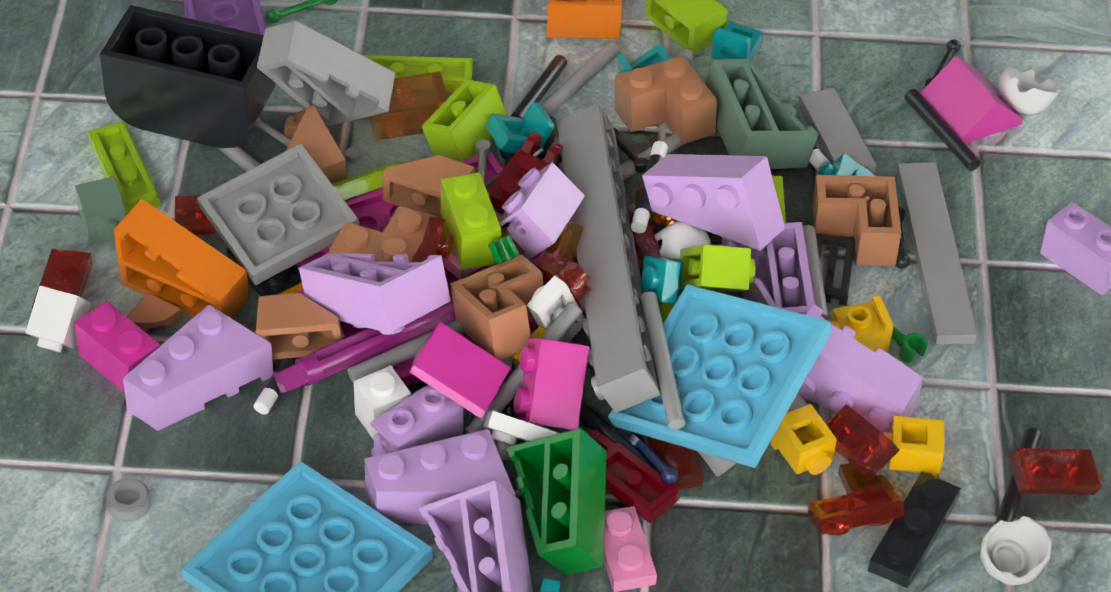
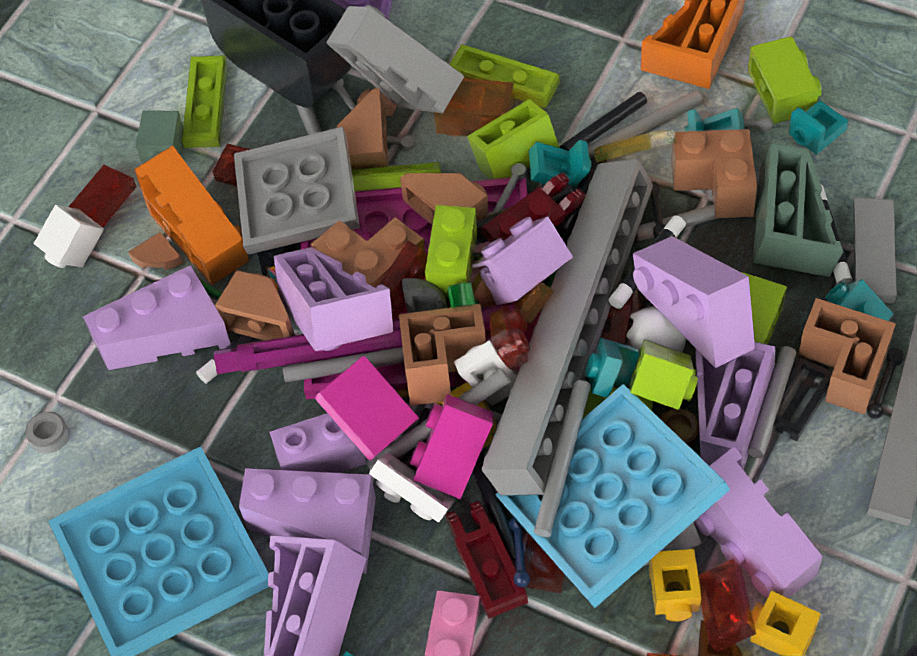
camera: 30 degrees right, 10 degrees up
(112, 342) = (100, 271): dark pink brick -> none
(377, 395) = (297, 401): white brick -> none
(459, 264) = (422, 295): none -> dark grey tile
(564, 498) = (408, 573): green wedge -> none
(585, 95) = (635, 145): none -> clear yellow tile
(869, 321) = (792, 476): yellow brick -> none
(908, 343) = (834, 501): green hand -> none

